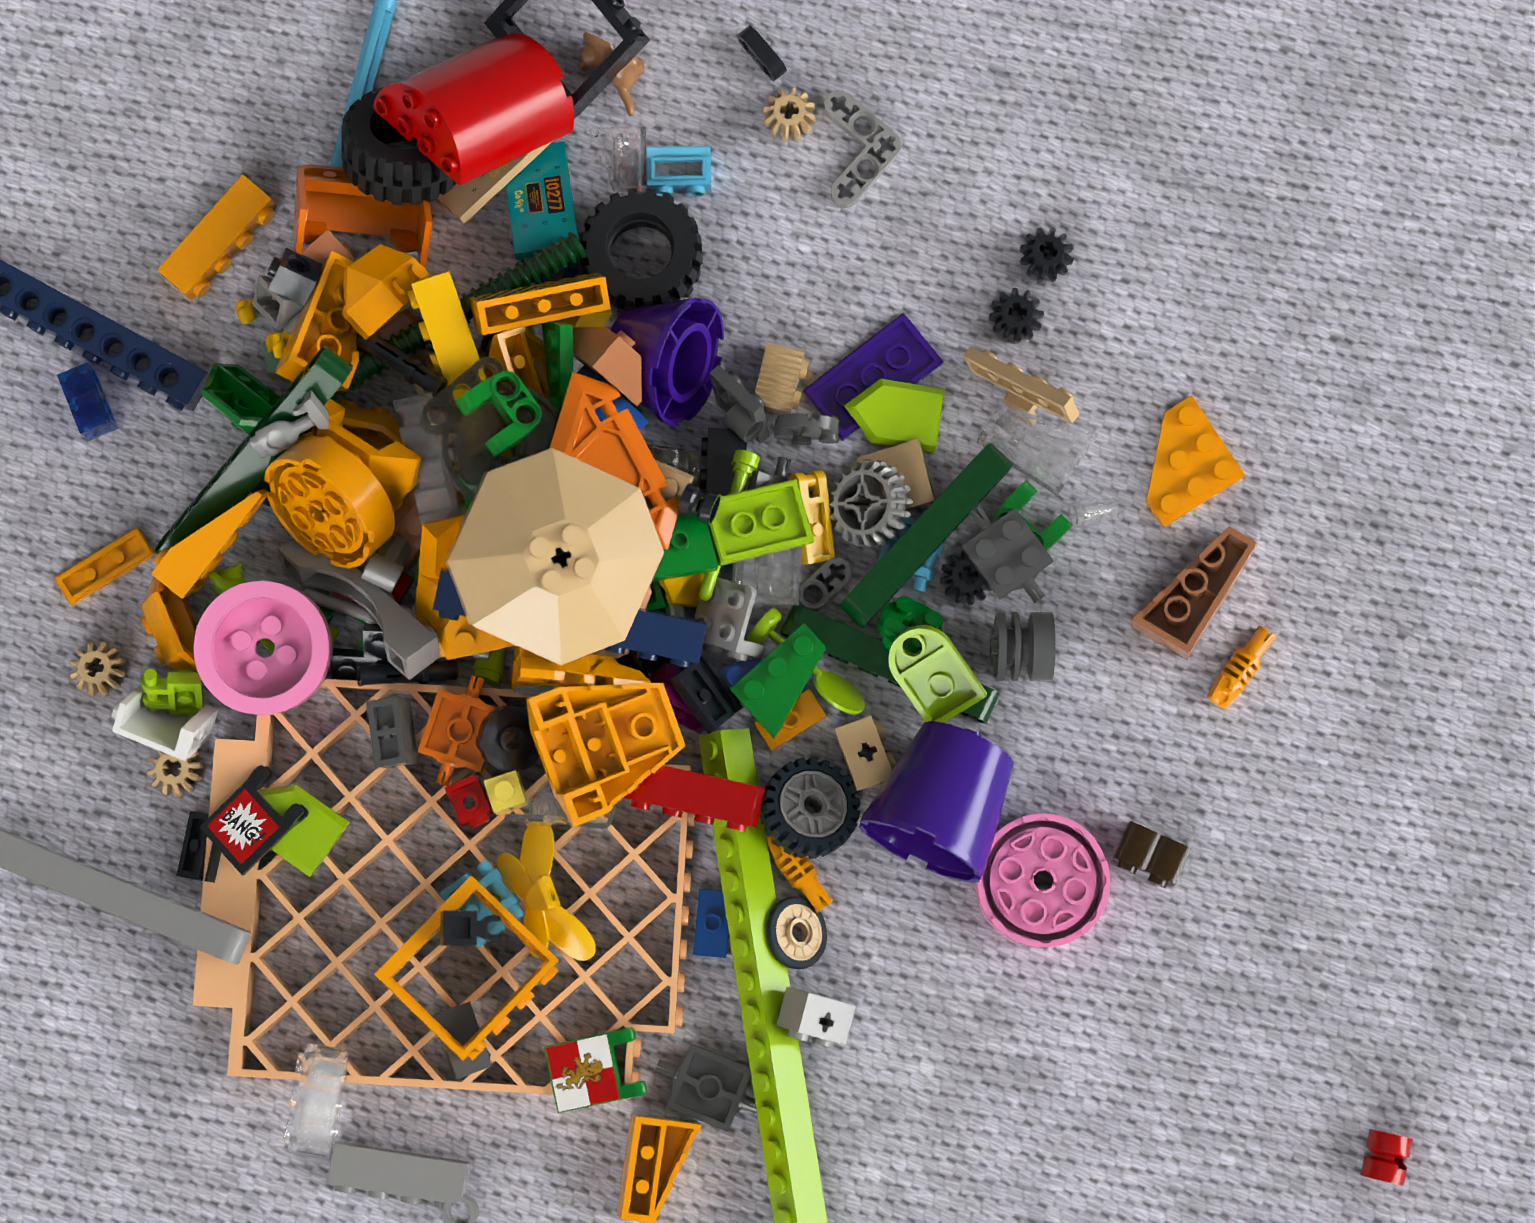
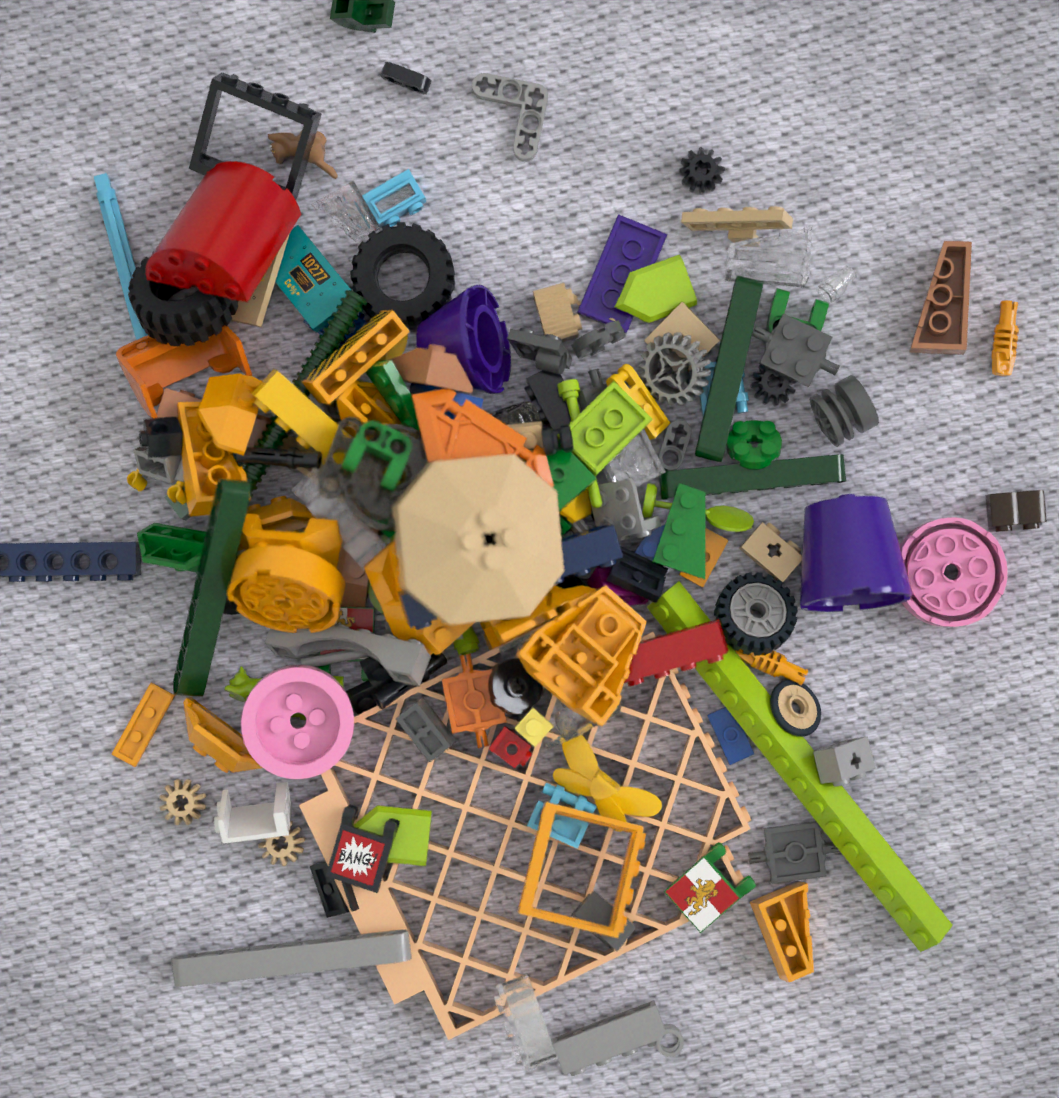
camera: 25 degrees left, 5 degrees up
(87, 401) = (60, 612): clear blue brick -> none
(178, 692) = (253, 788): lime plate -> none
(189, 562) = (207, 687): light orange wedge -> none
(217, 238) = (84, 438): light orange brick -> none
(284, 434) = (226, 560): light grey piece -> none
(388, 564) = (353, 612): light grey piece -> none
(462, 928) = (563, 843): black plate -> none
(778, 109) = (462, 110): tan gear -> none
(936, 676) = (794, 469): lime tile -> none
(1058, 254) = (693, 120): black gear -> none
(1188, 464) = (885, 210): light orange plate -> none

